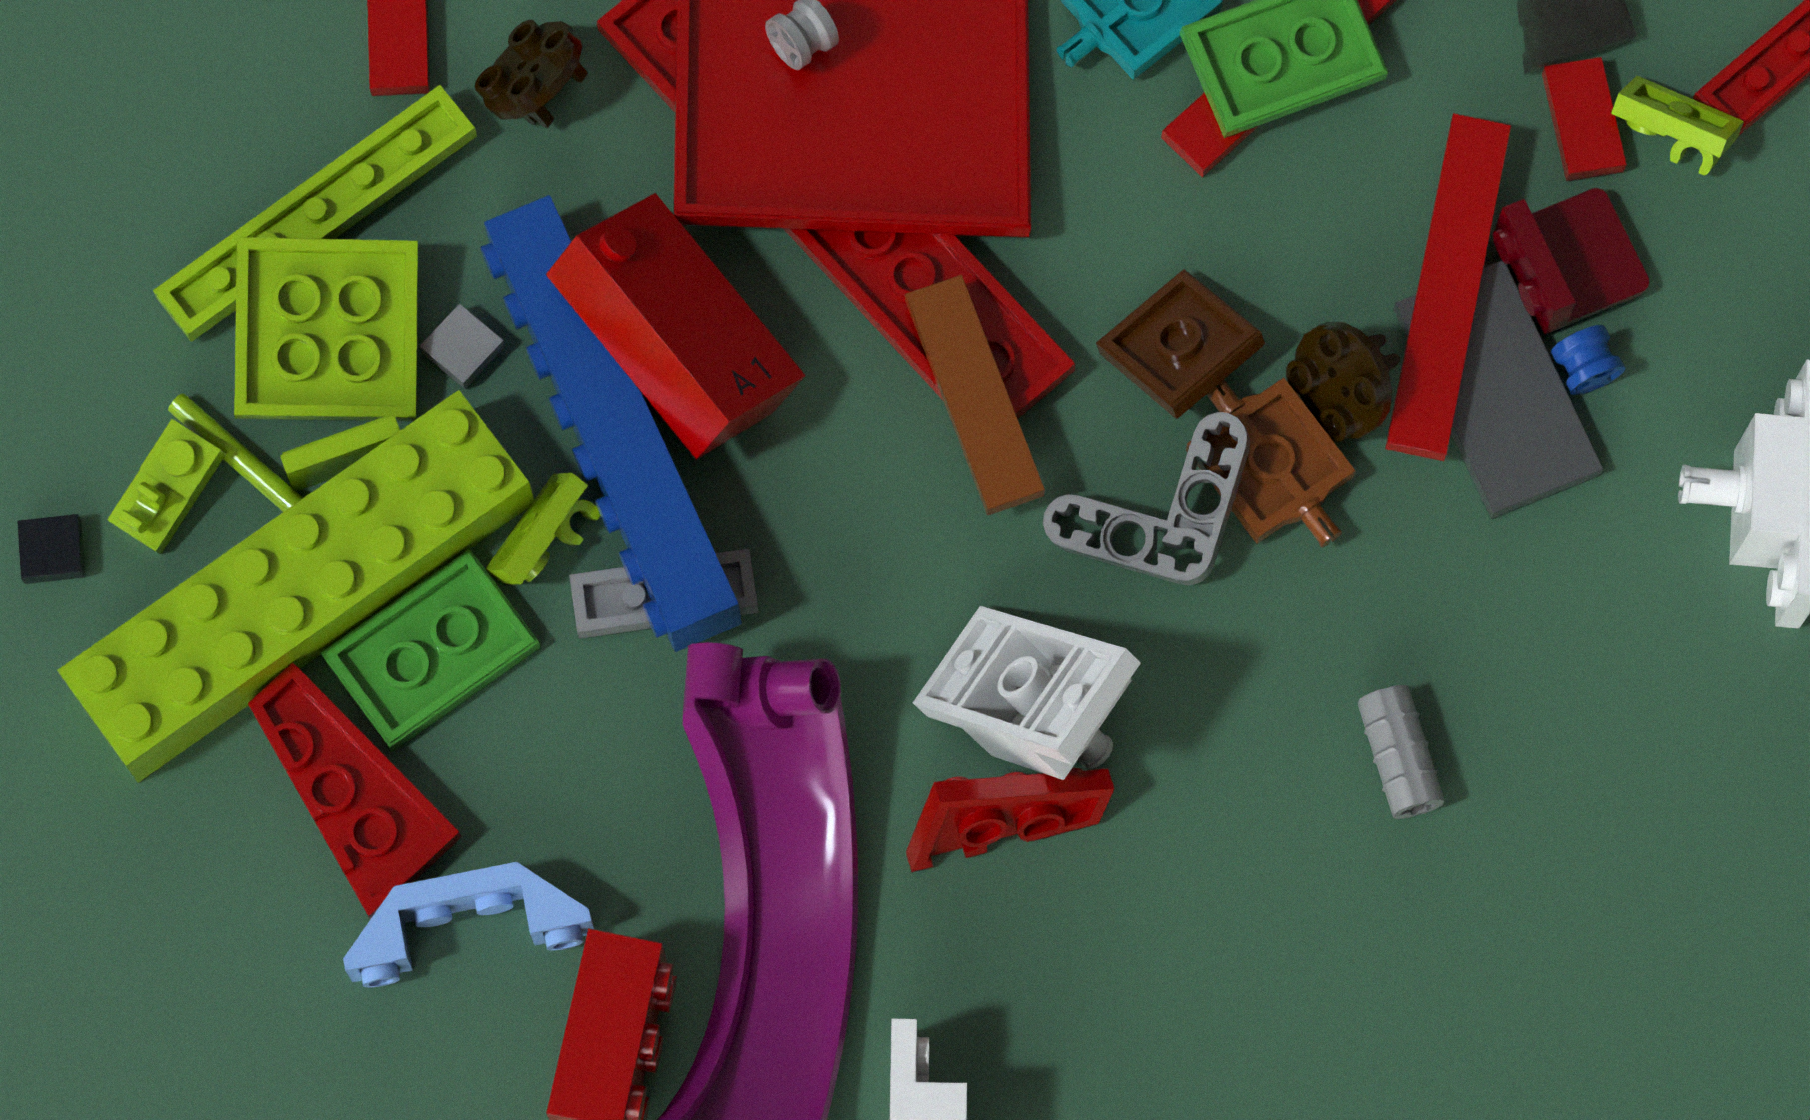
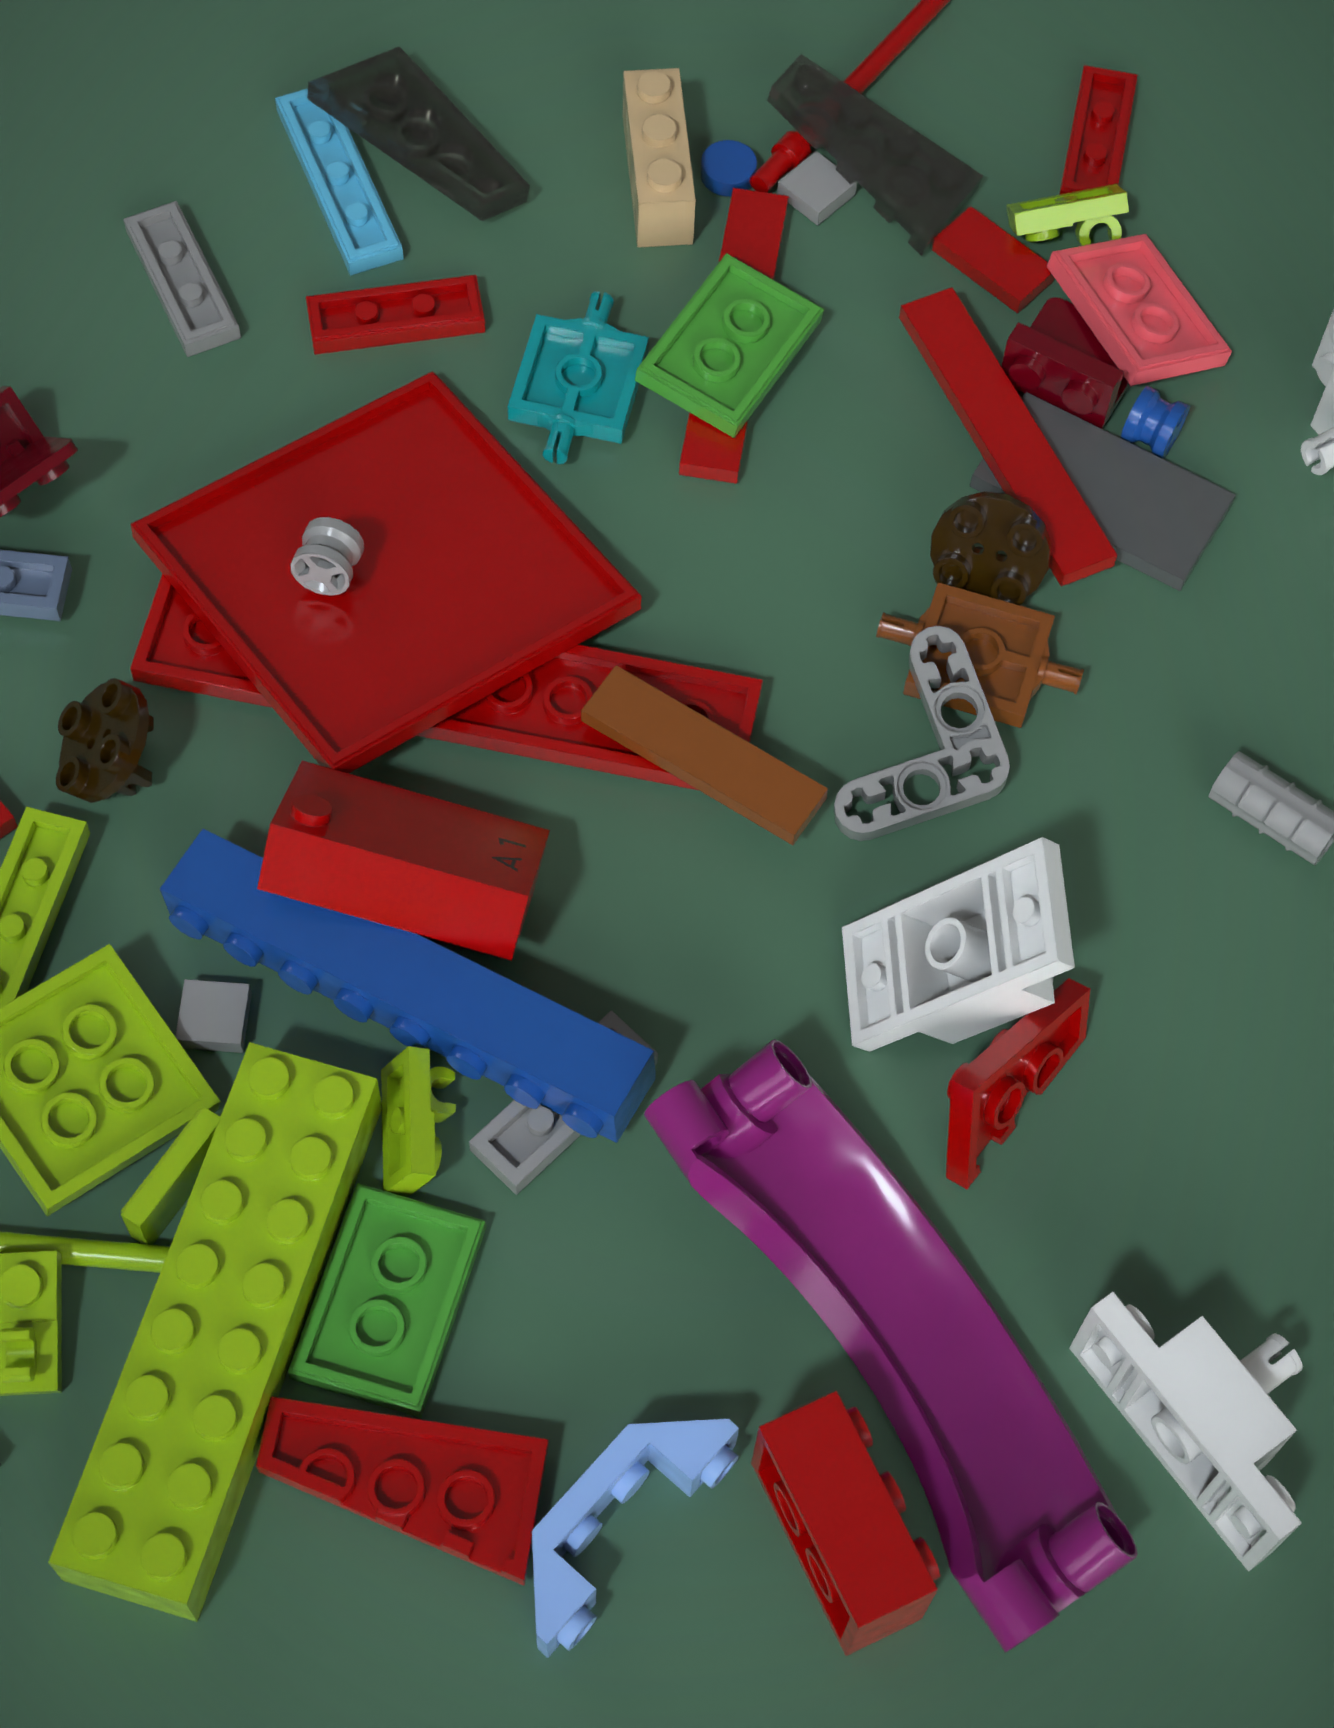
camera: 40 degrees left, 10 degrees down
(1180, 343) = (833, 611): reddish brown tile -> none
(1663, 249) = (1138, 309): none -> coral tile

